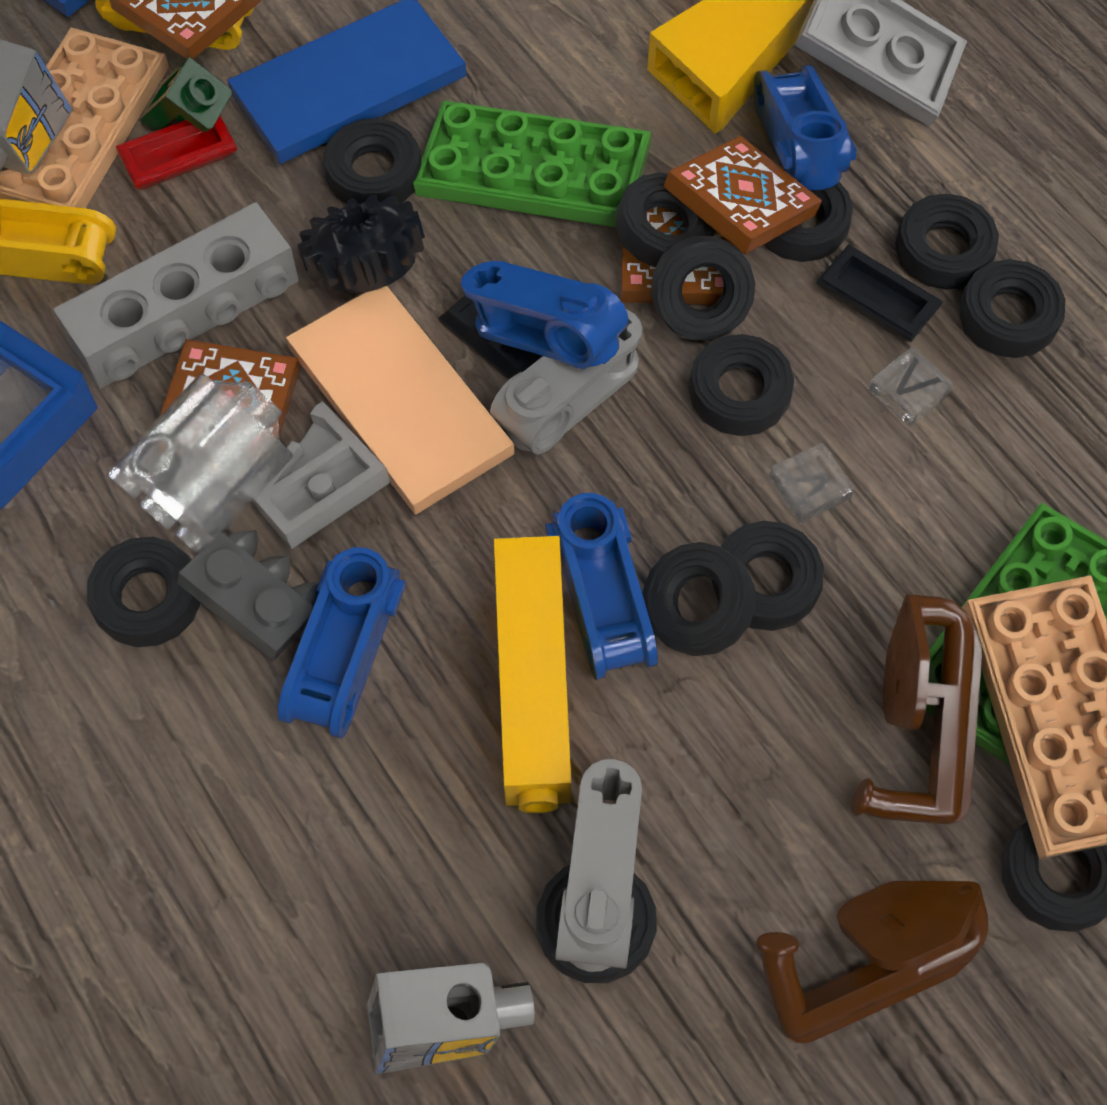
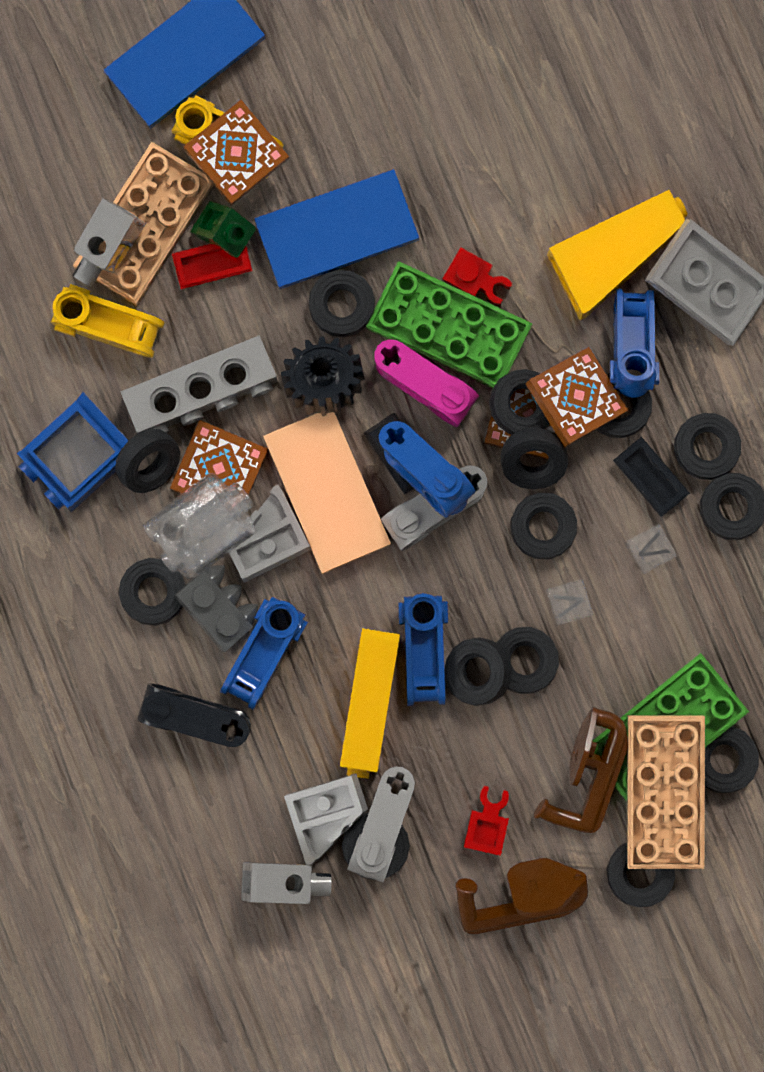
camera: 10 degrees right, 20 degrees up
(75, 388) = (136, 450): none -> black tyre
(235, 763) = (192, 716): none -> black piece
(496, 878) = (325, 814): none -> light grey wing
(514, 225) = (425, 382): none -> dark pink piece
(558, 98) = (472, 274): none -> red plate
(779, 848) = (485, 828): none -> red plate

